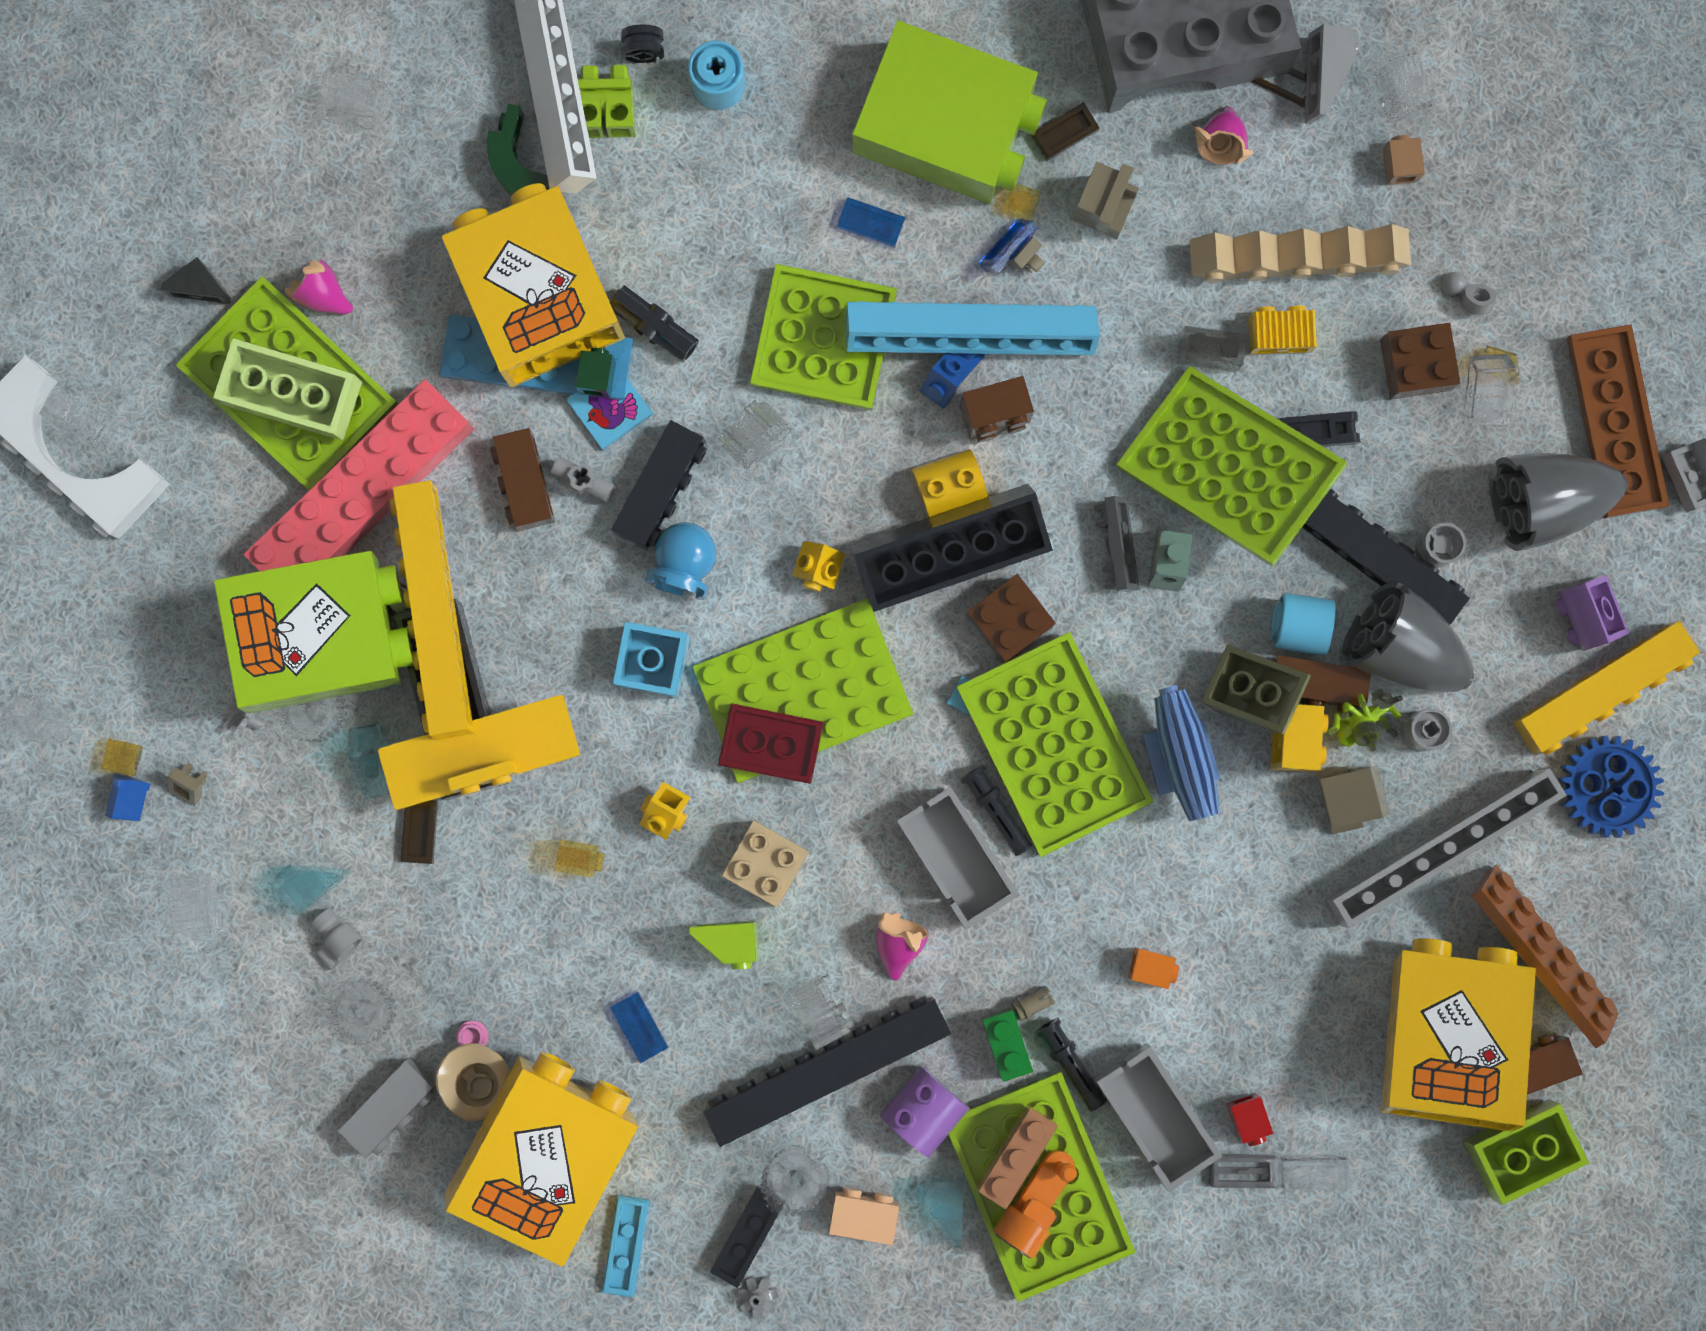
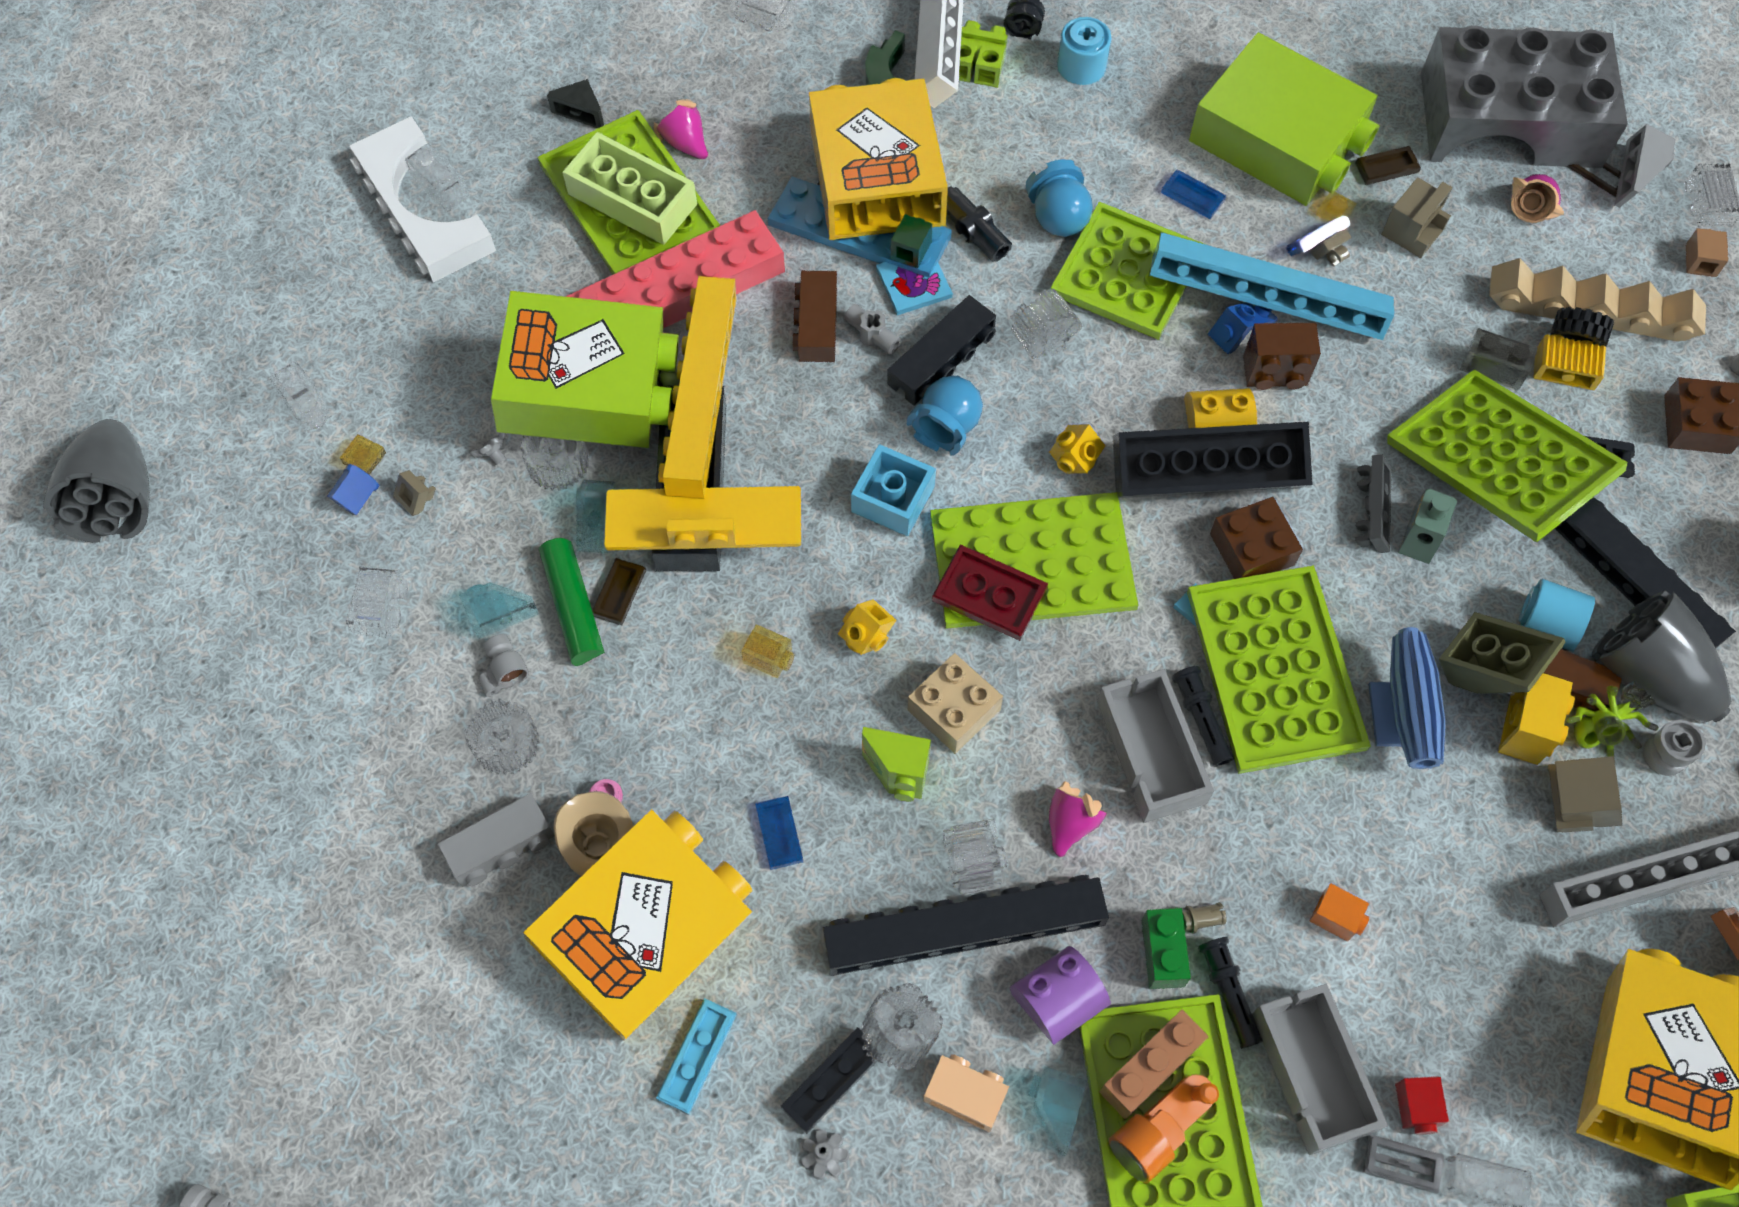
camera: 15 degrees right, 20 degrees down
(377, 856) = (571, 601): none -> green brick
(738, 281) = (1060, 198): none -> dark azure tile
(1288, 294) = (1583, 325): none -> black tyre
(1441, 544) = (1711, 575): light grey wheel -> none

